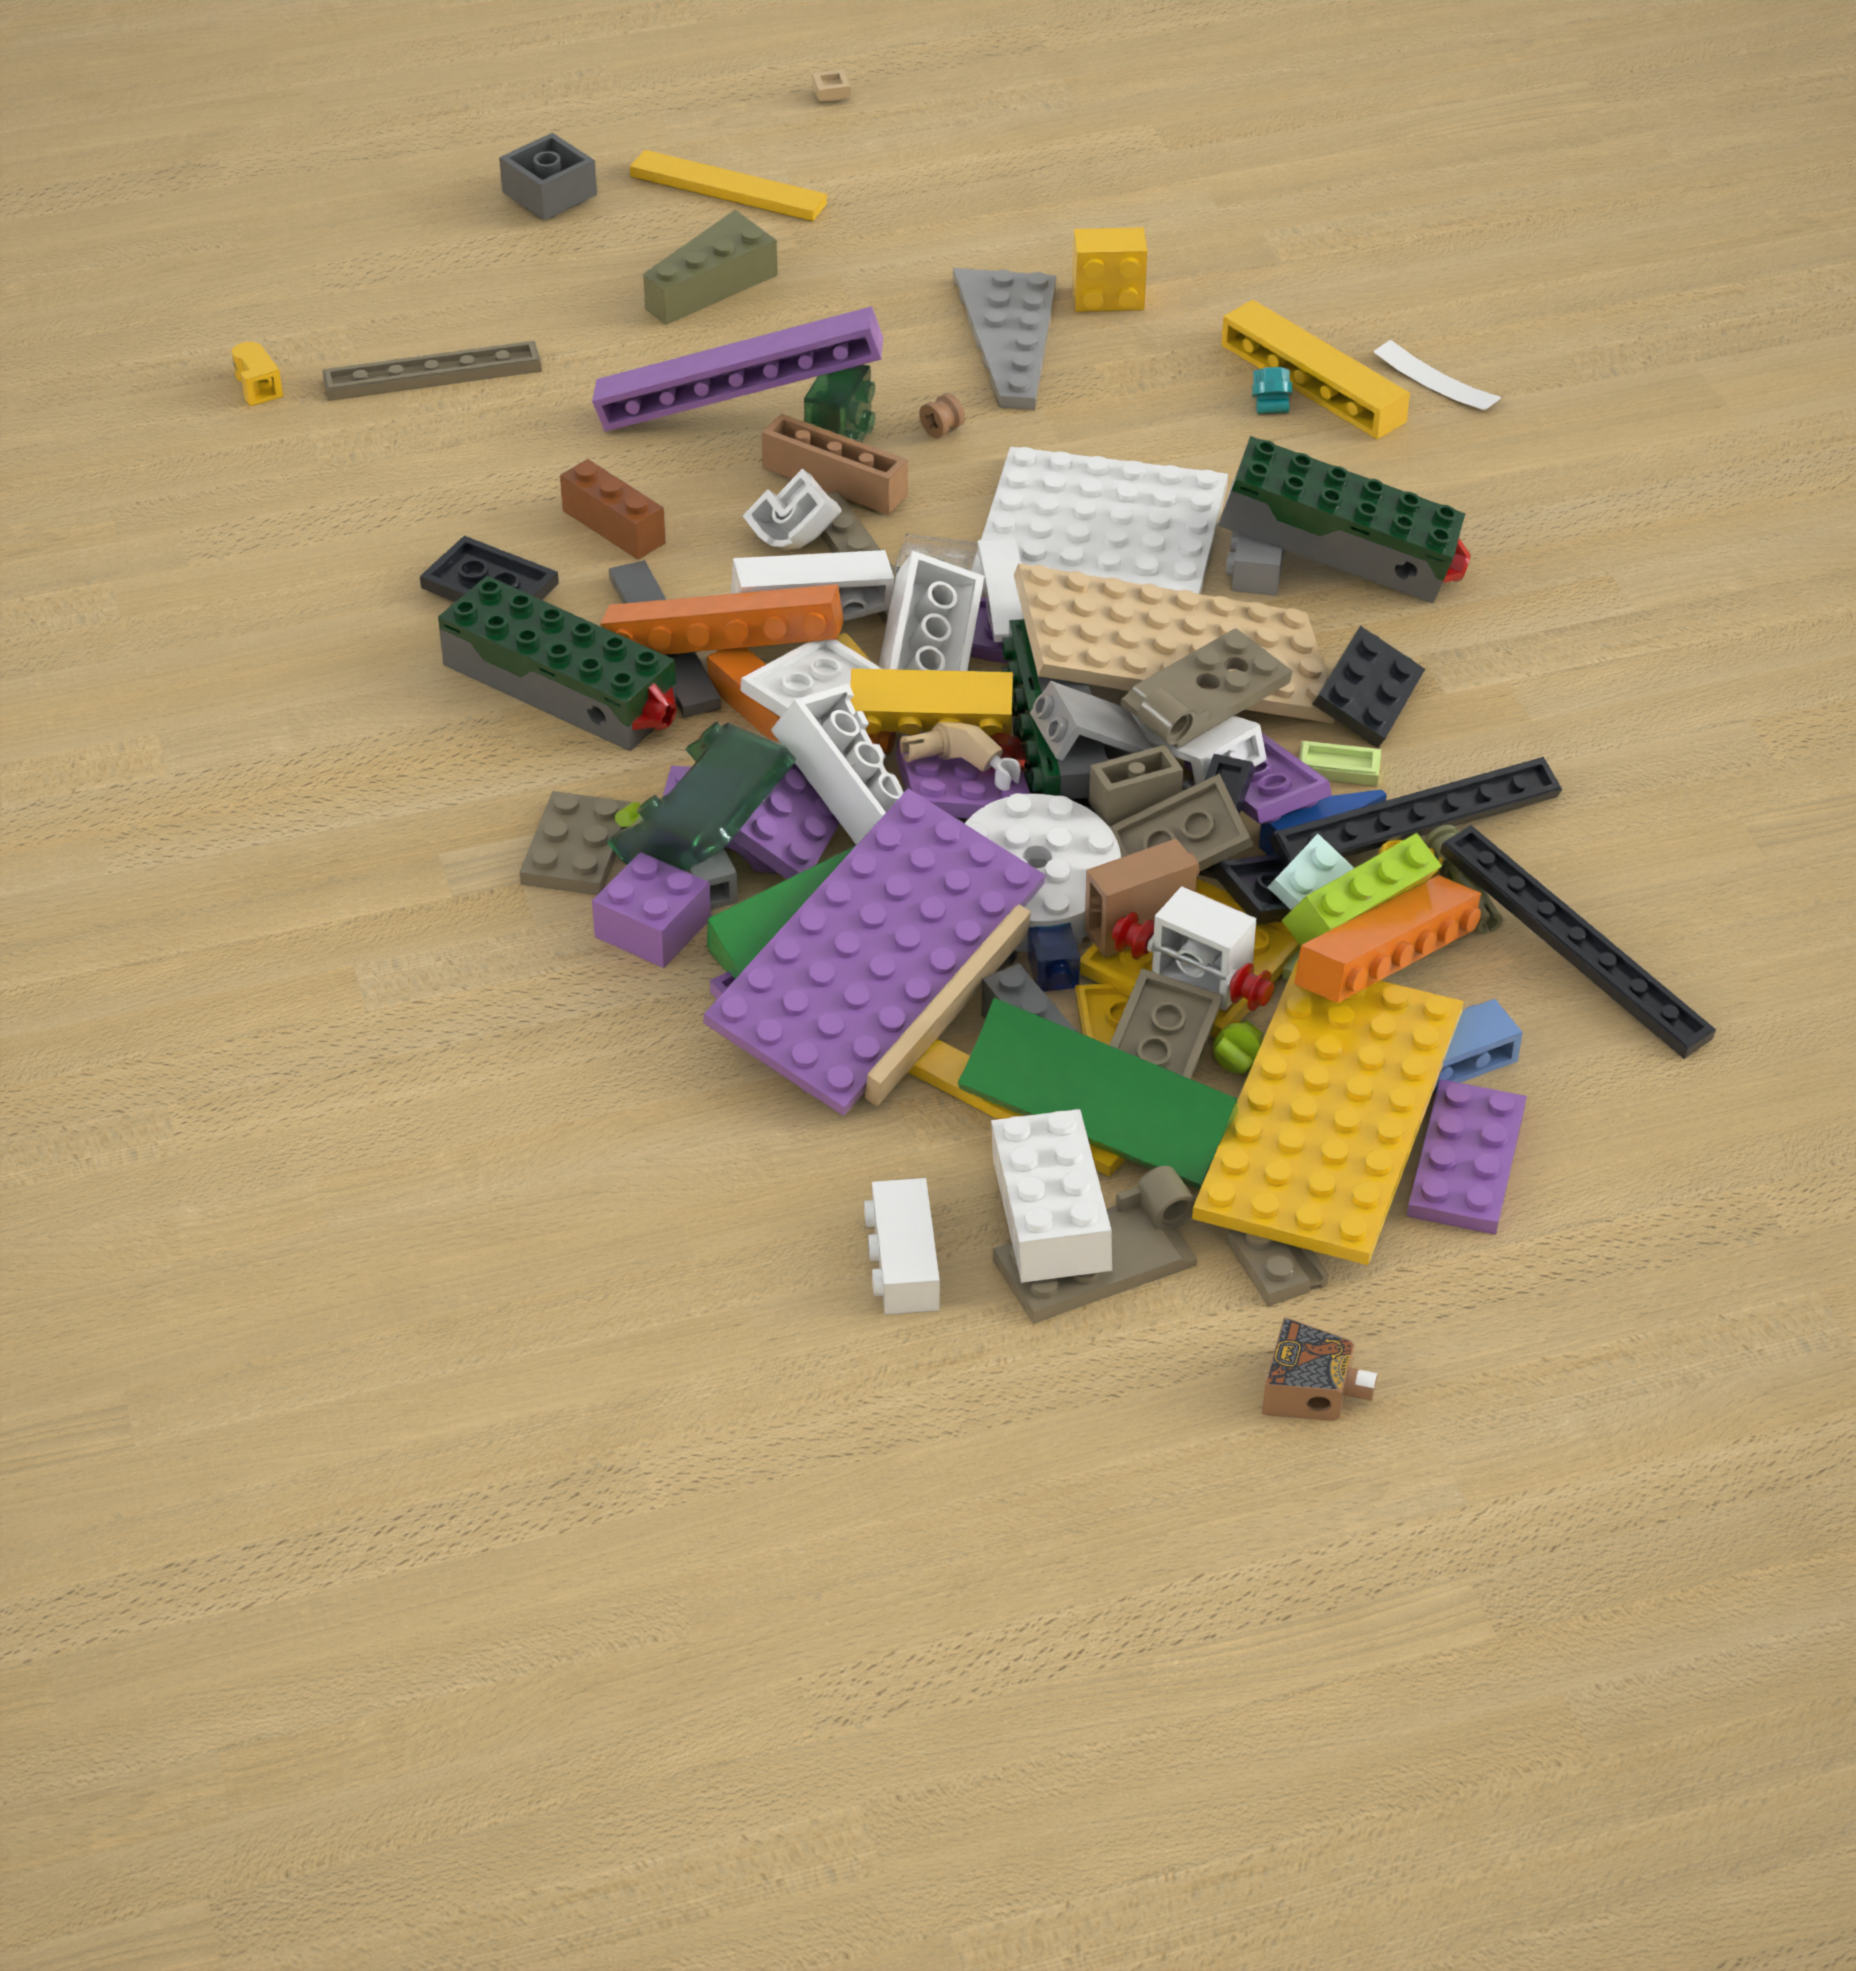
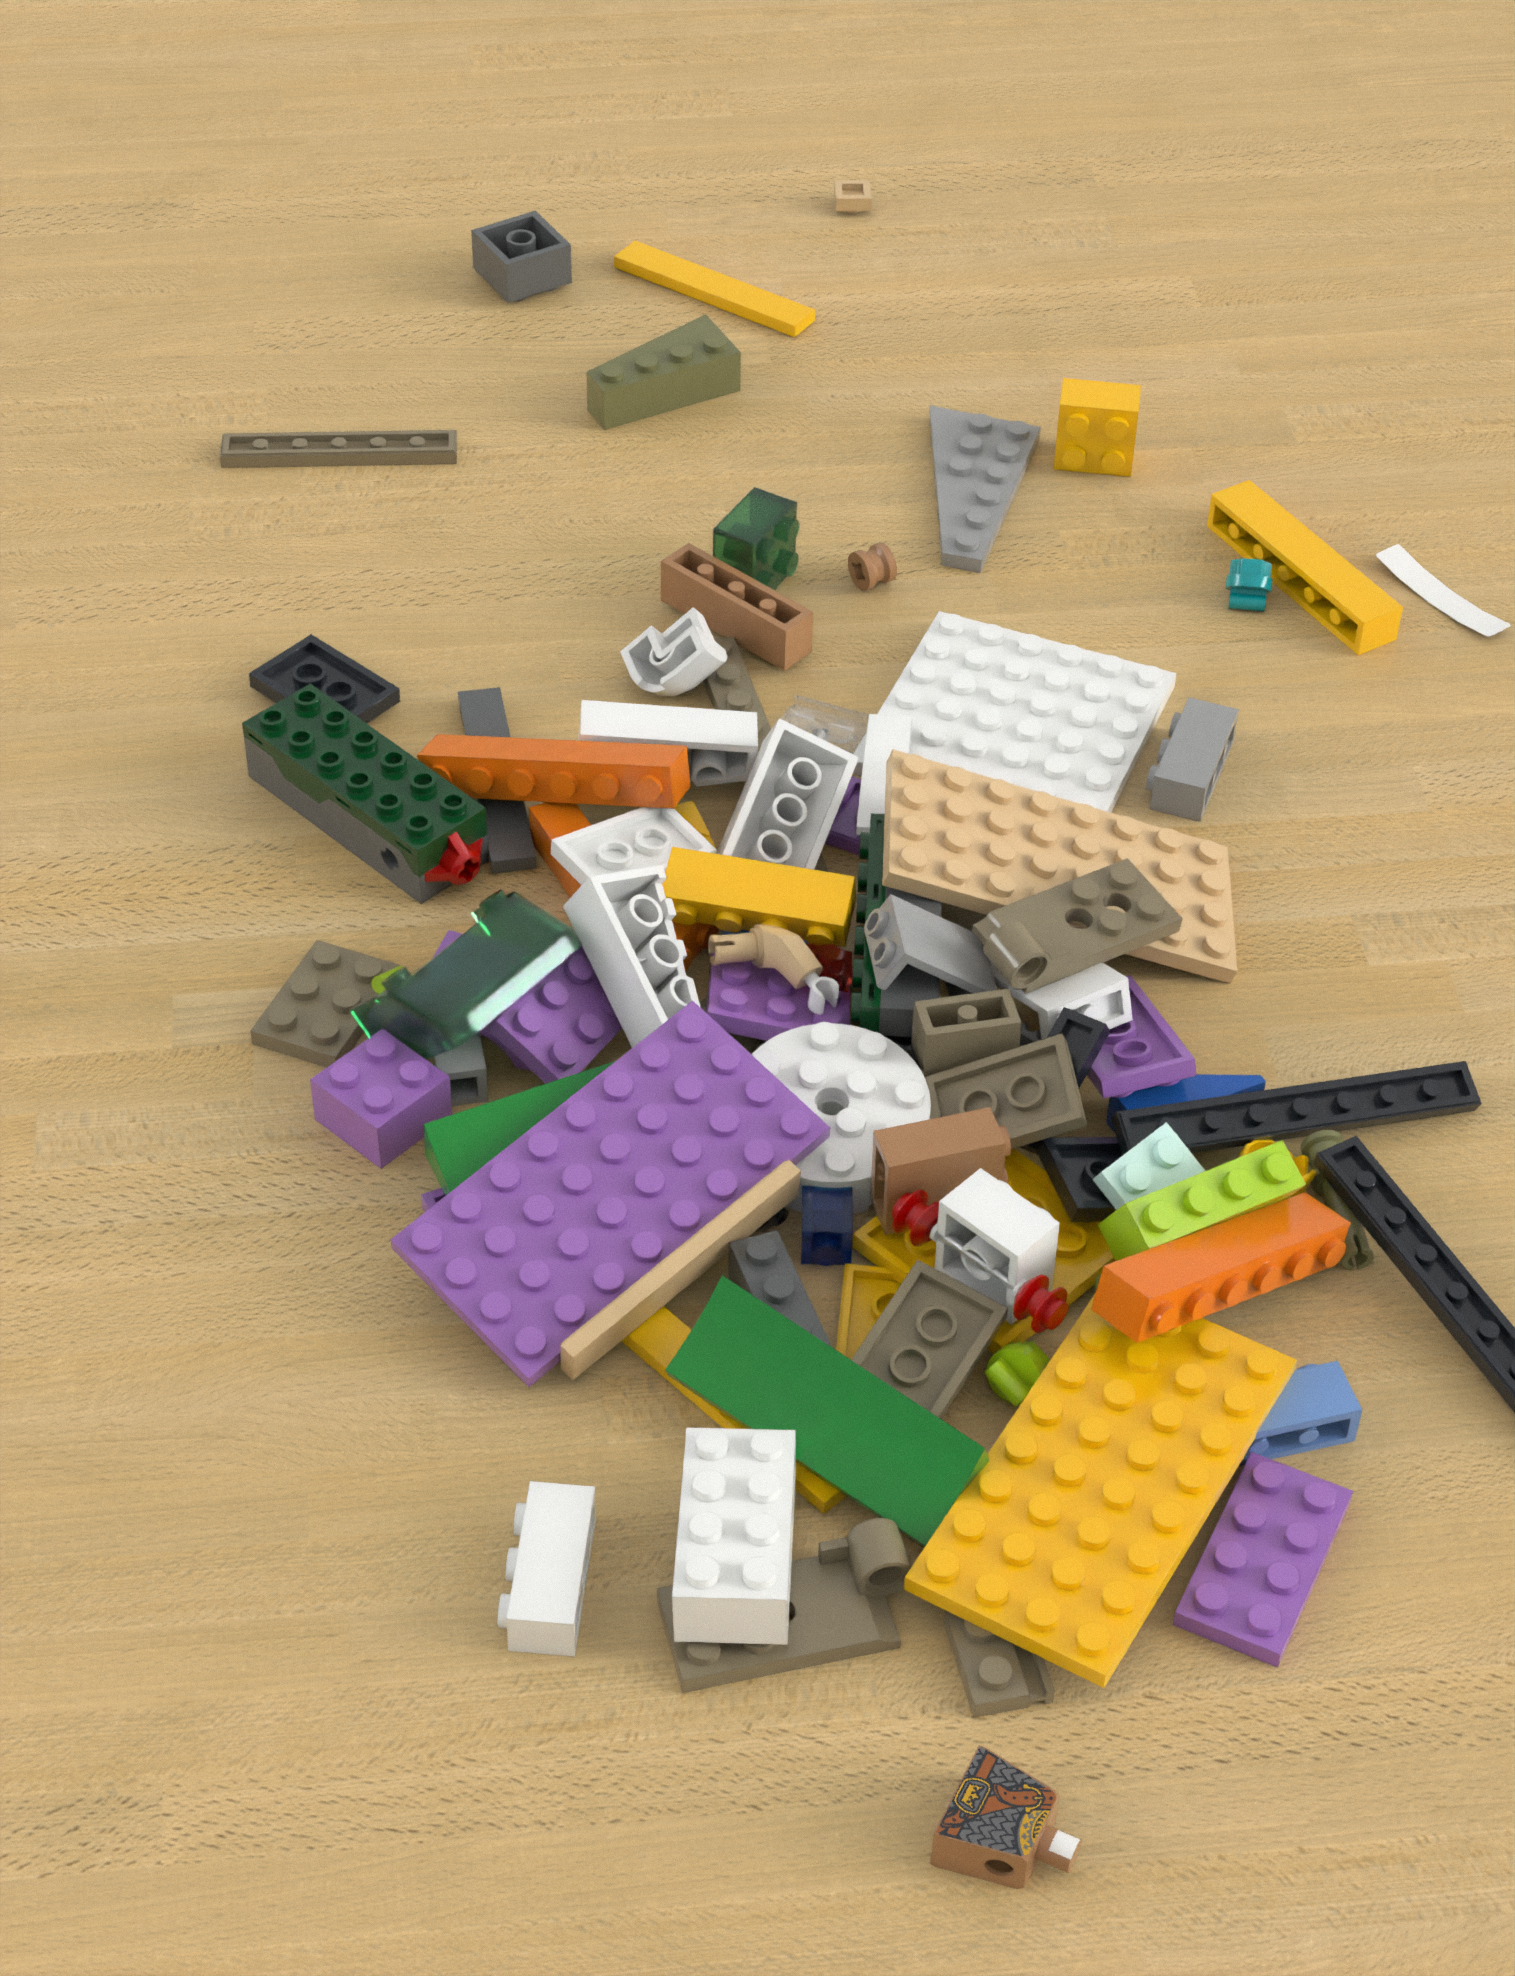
camera: 10 degrees right, 0 degrees up
(257, 373) = (151, 429): yellow leg -> none
(613, 509) = (481, 625): dark orange brick -> none
(738, 369) = (654, 487): medium lavender brick -> none
(1342, 762) = (1225, 1033): yellowish green tile -> none
(1345, 520) = (1291, 746): dark green piece -> none
(1369, 686) = (1277, 946): black plate -> none

